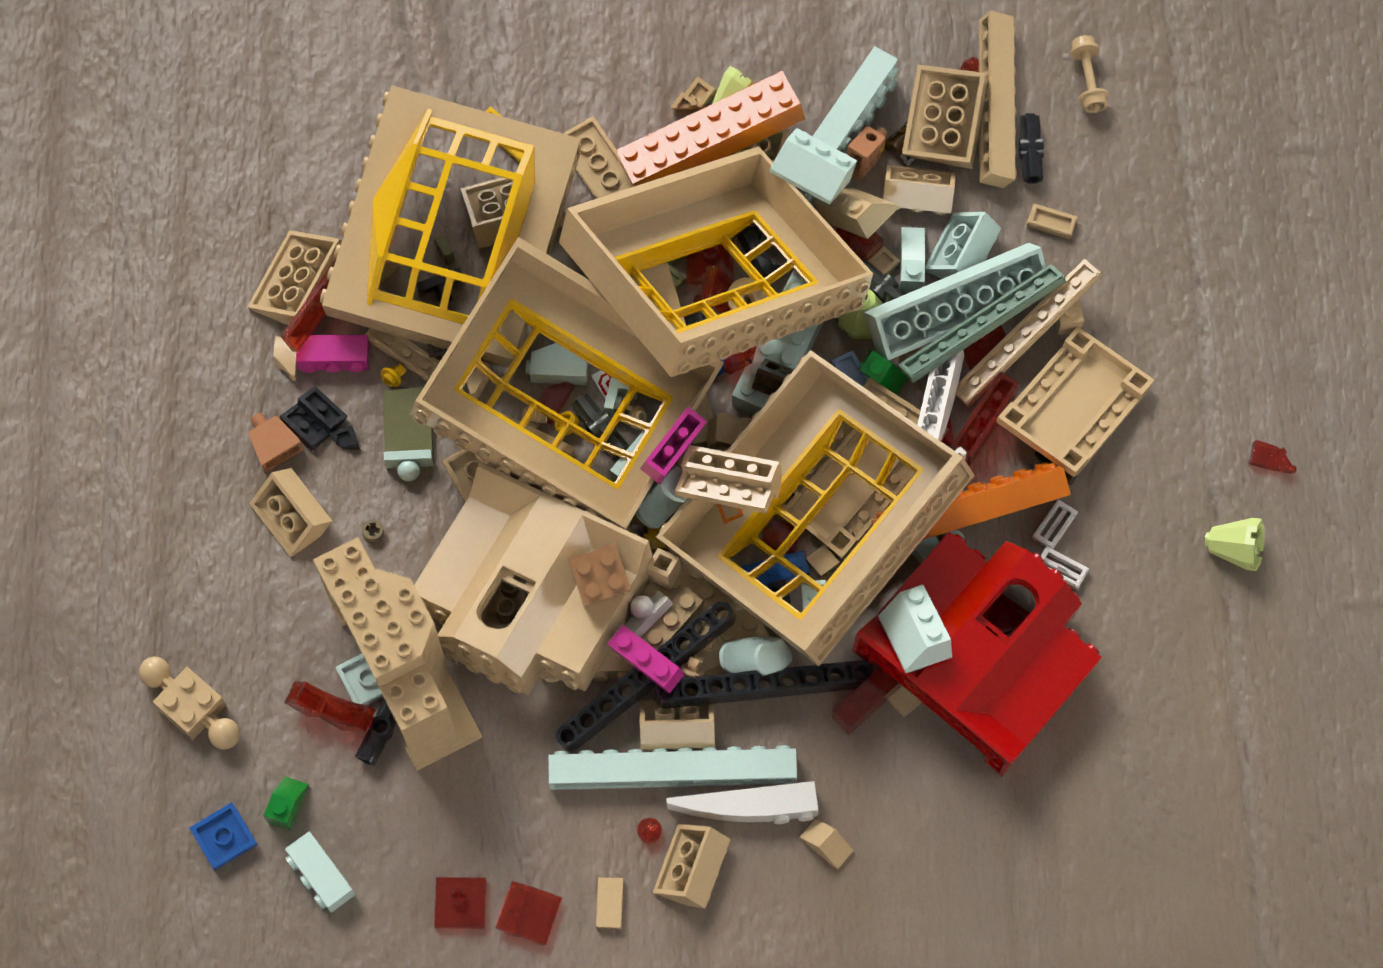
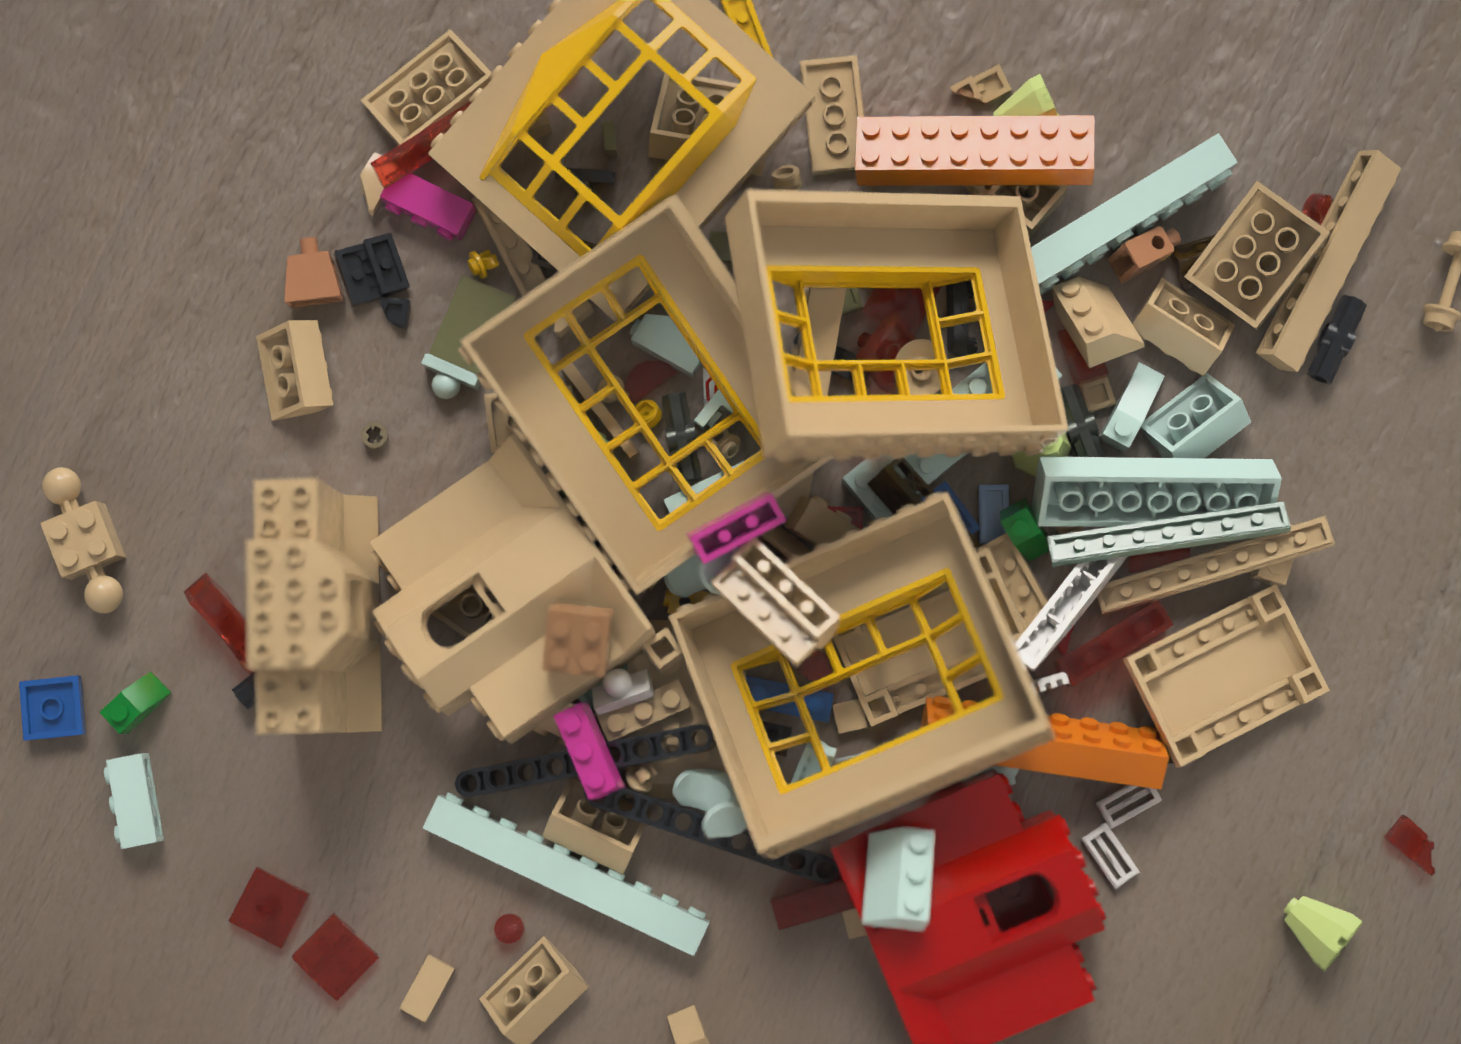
camera: 25 degrees right, 15 degrees up
(752, 805) = (634, 959): white slope -> none
(813, 166) = (1069, 255): light aqua slope -> none
(1051, 221) = (1313, 438): tan tile -> none

